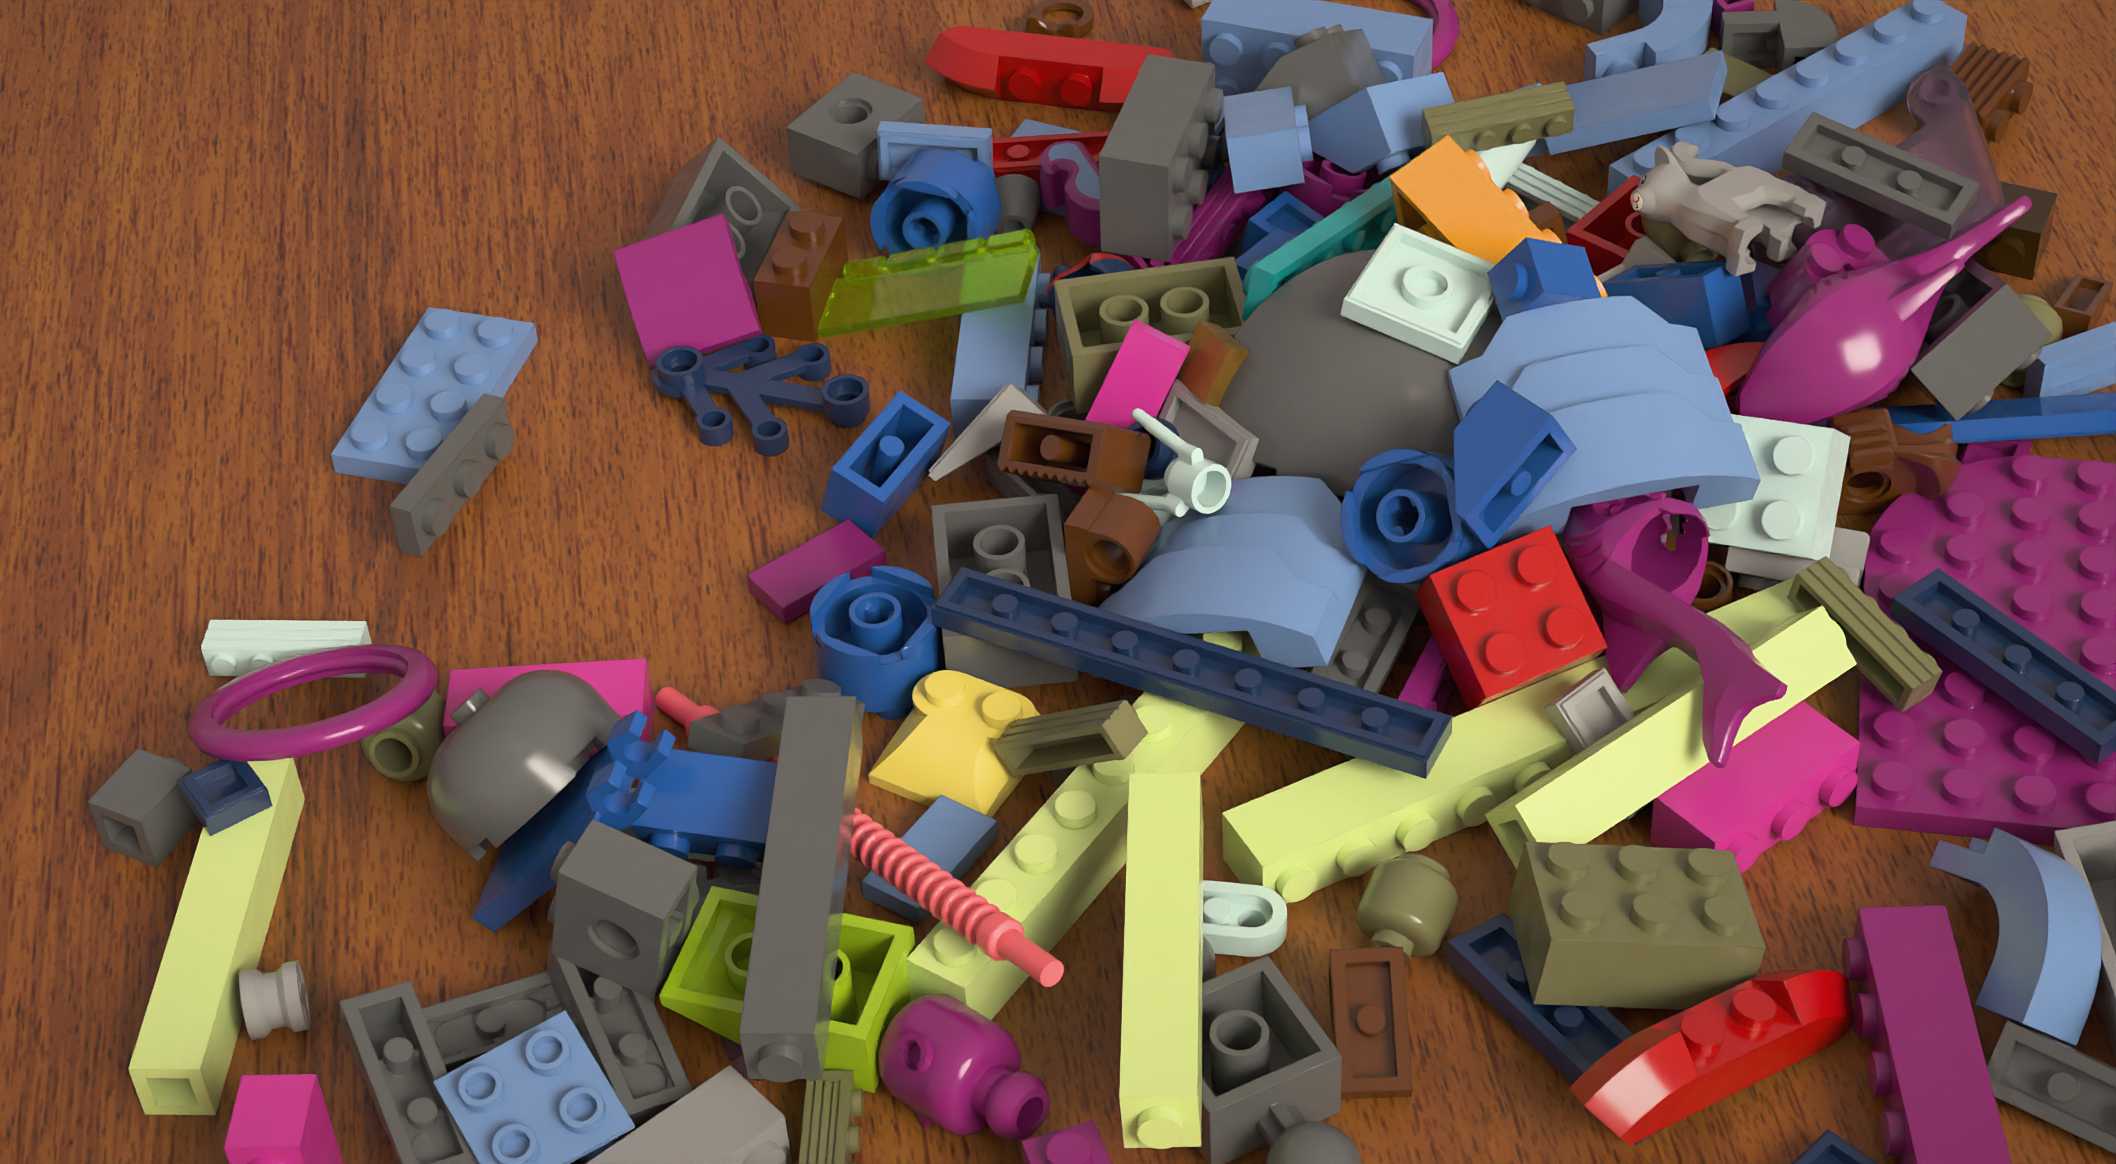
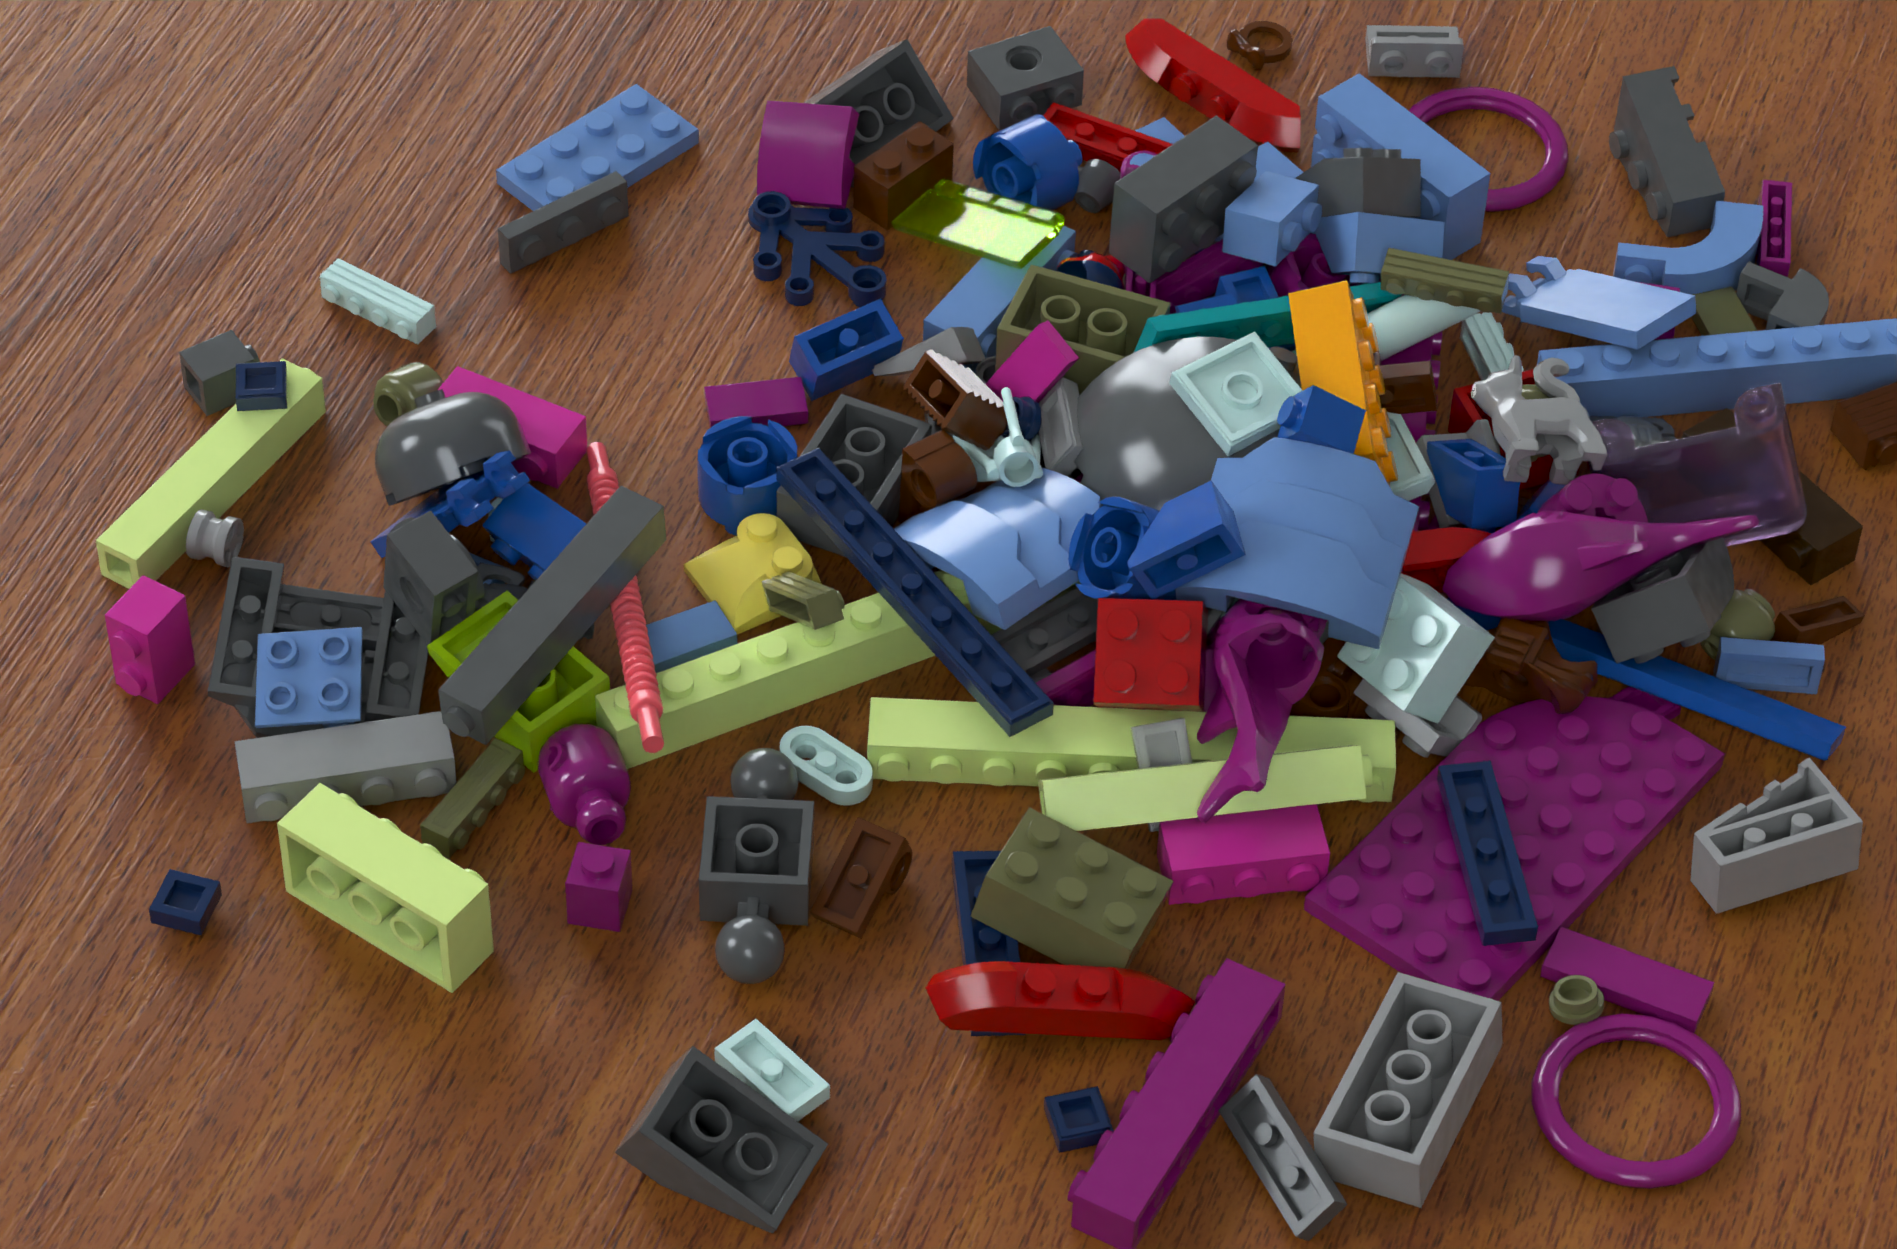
camera: 25 degrees right, 5 degrees up
(224, 743) = (349, 377): magenta wedge -> none
(755, 727) = (680, 498): dark grey plate -> none
(901, 140) = (1072, 122): medium blue tile -> none
(1163, 963) = (737, 768): yellowish green brick -> none
(1211, 362) = (1087, 375): pearl gold tile -> none
(1408, 905) = (948, 817): olive head -> none
(1876, 643) = (1396, 781): olive piece -> none
(1880, 175) = (1666, 451): dark grey plate -> none
(2047, 932) = (1327, 1031): medium blue arch -> none

